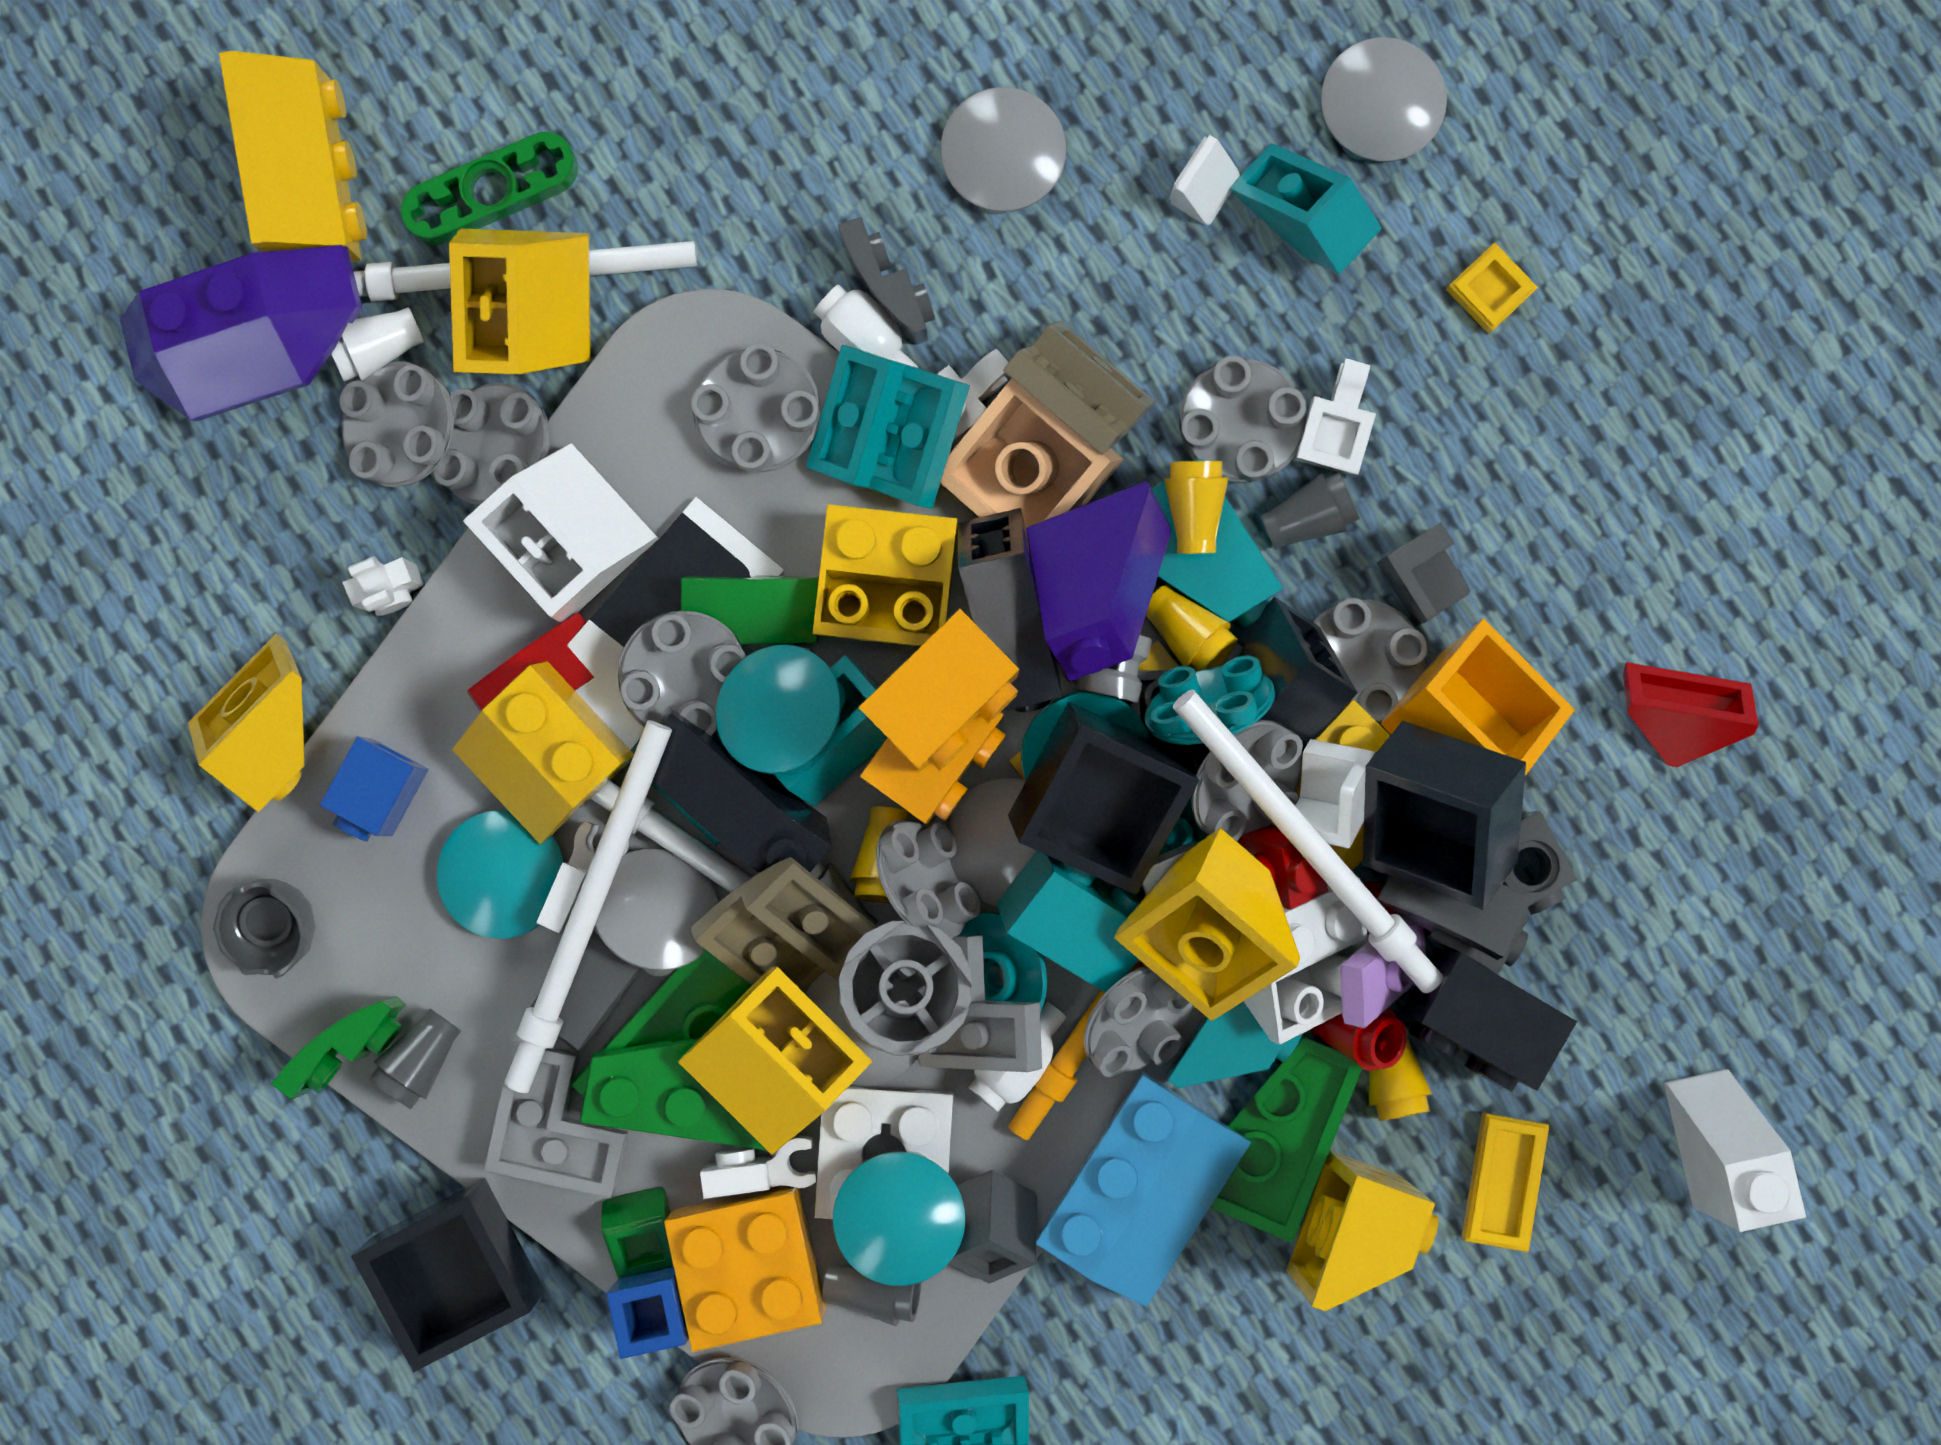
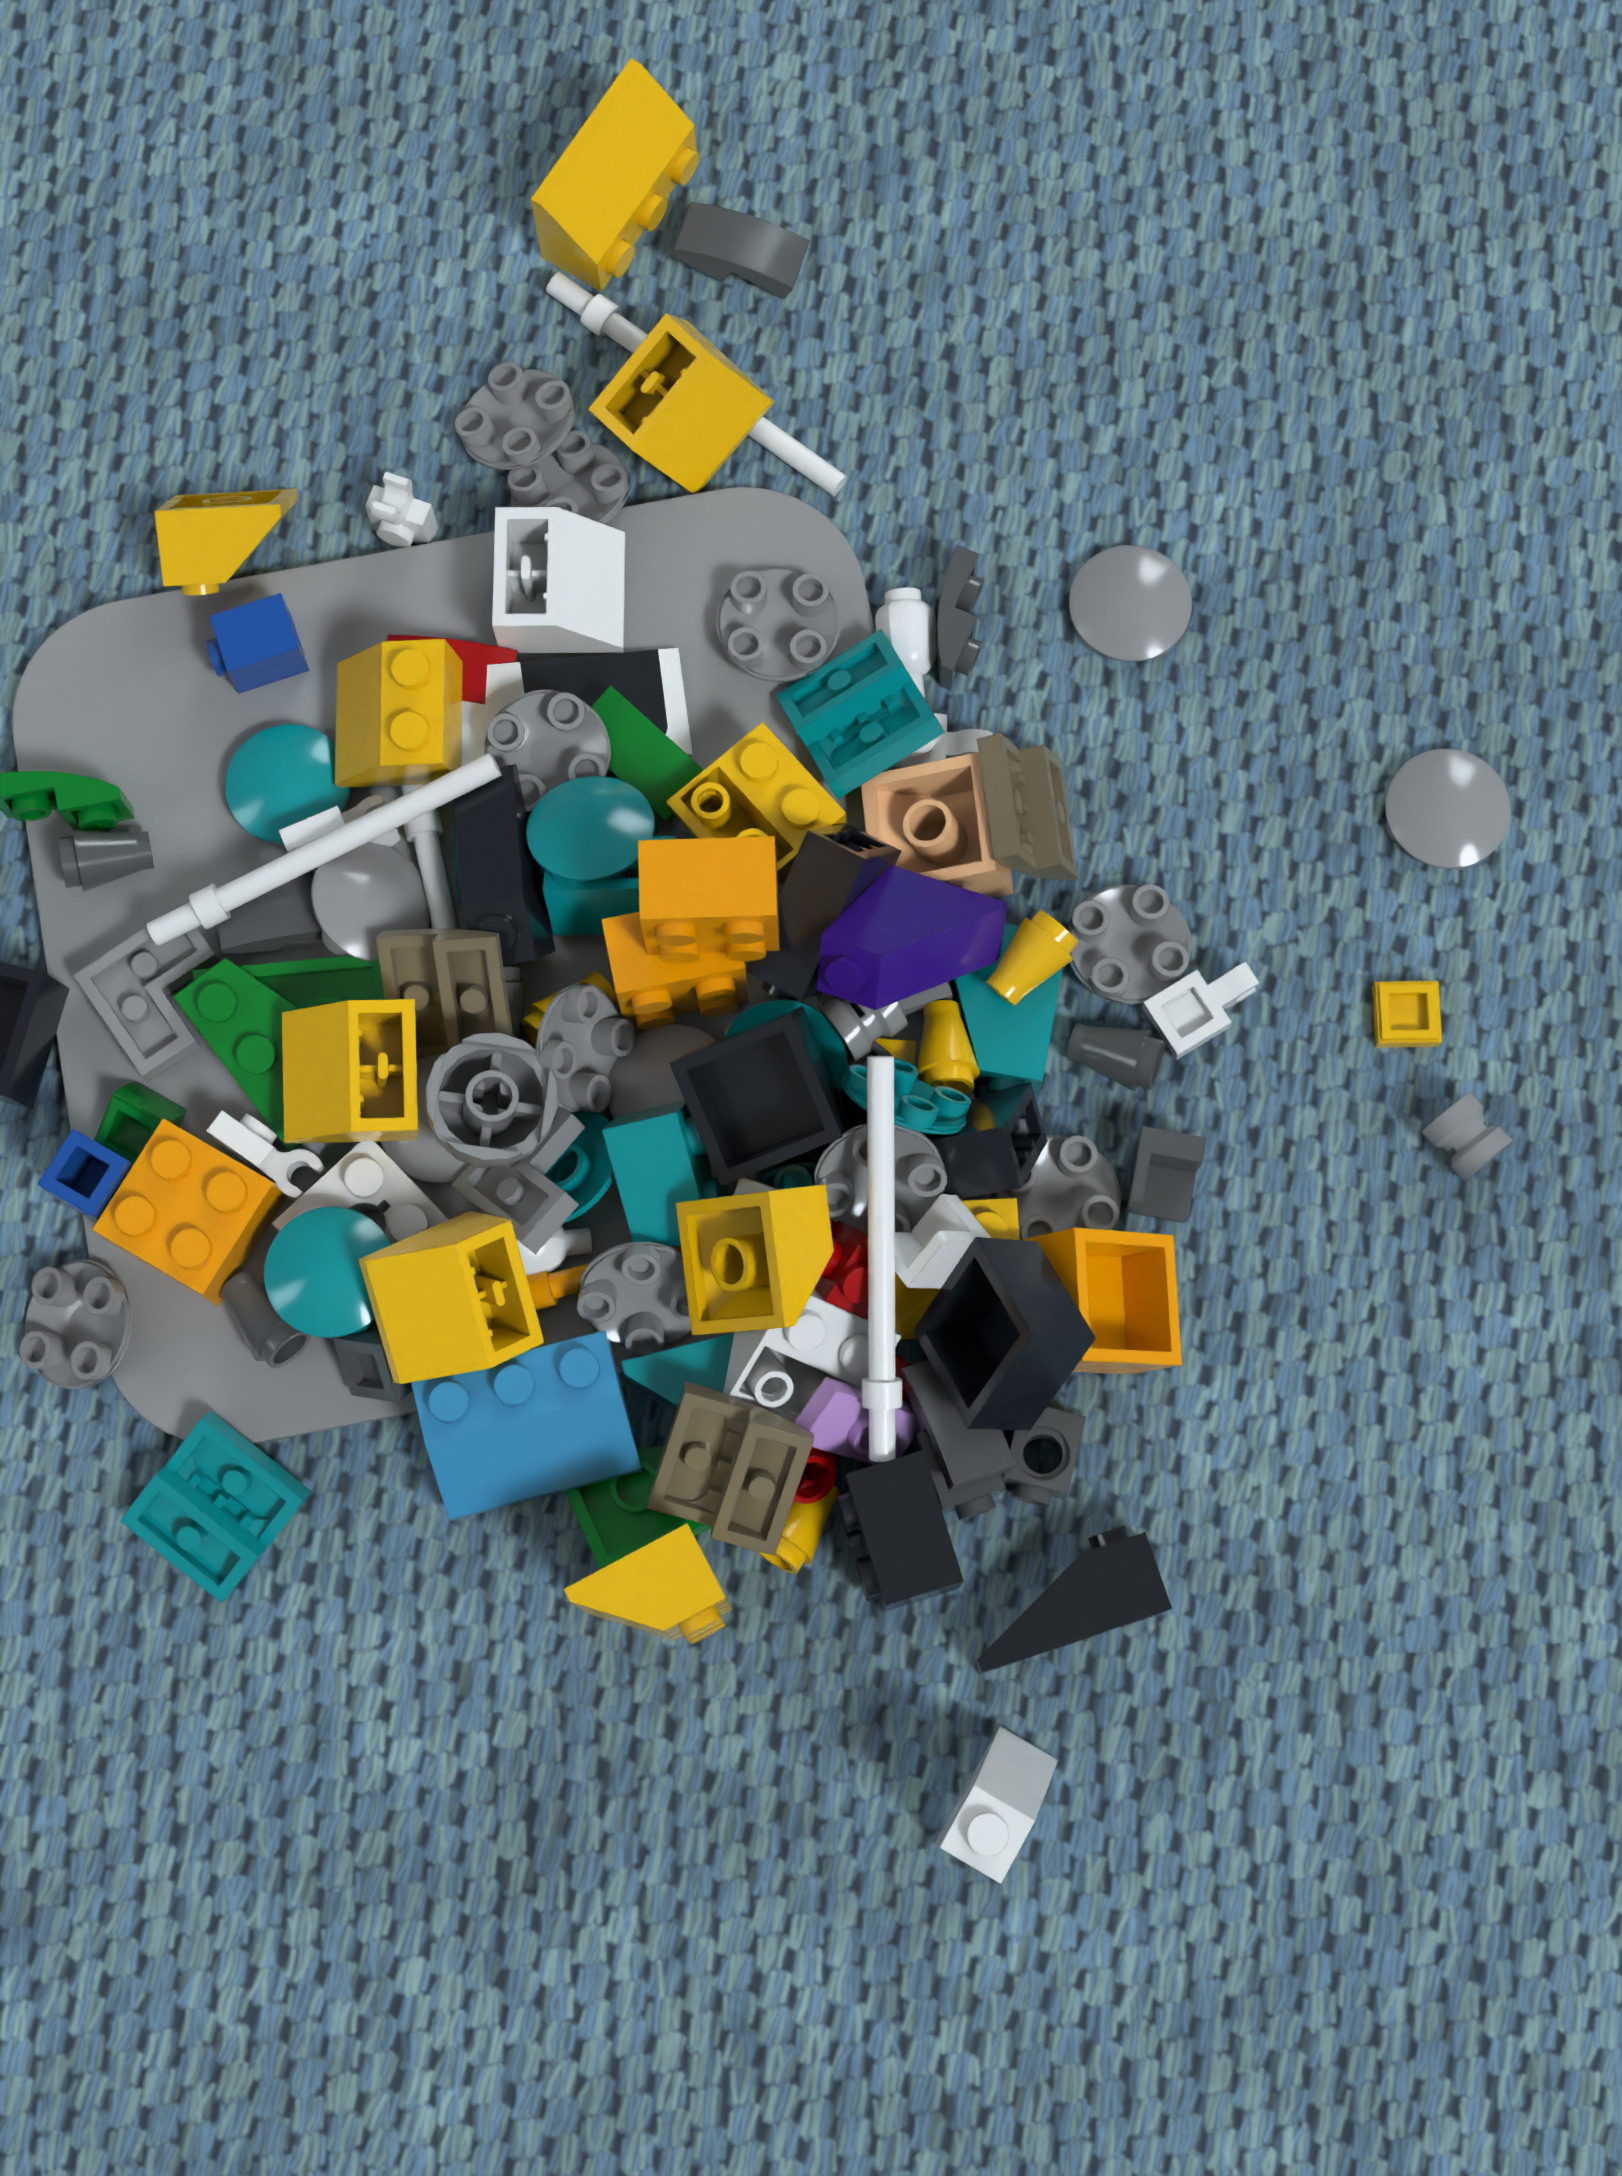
camera: 40 degrees right, 10 degrees down
(241, 328) = (473, 257): dark purple wedge -> none
(264, 926) = (90, 669): dark grey hair -> none
(375, 342) = (552, 348): white cone -> none
(433, 128) = (735, 242): none -> dark grey slope
(466, 176) = (748, 341): green beam -> none
(1012, 1158) = (452, 1299): none -> yellow slope
(1205, 182) = (1258, 750): white slope -> none
(1308, 206) = (1318, 834): teal slope -> none
(1325, 1089) = (730, 1468): none -> dark tan slope
(1505, 1182) = (807, 1685): yellow tile -> none
(1615, 343) = (1464, 1132): none -> light grey wheel
(1651, 940) = (1093, 1595): none -> black slope
(1688, 712) = (1270, 1456): red slope -> none

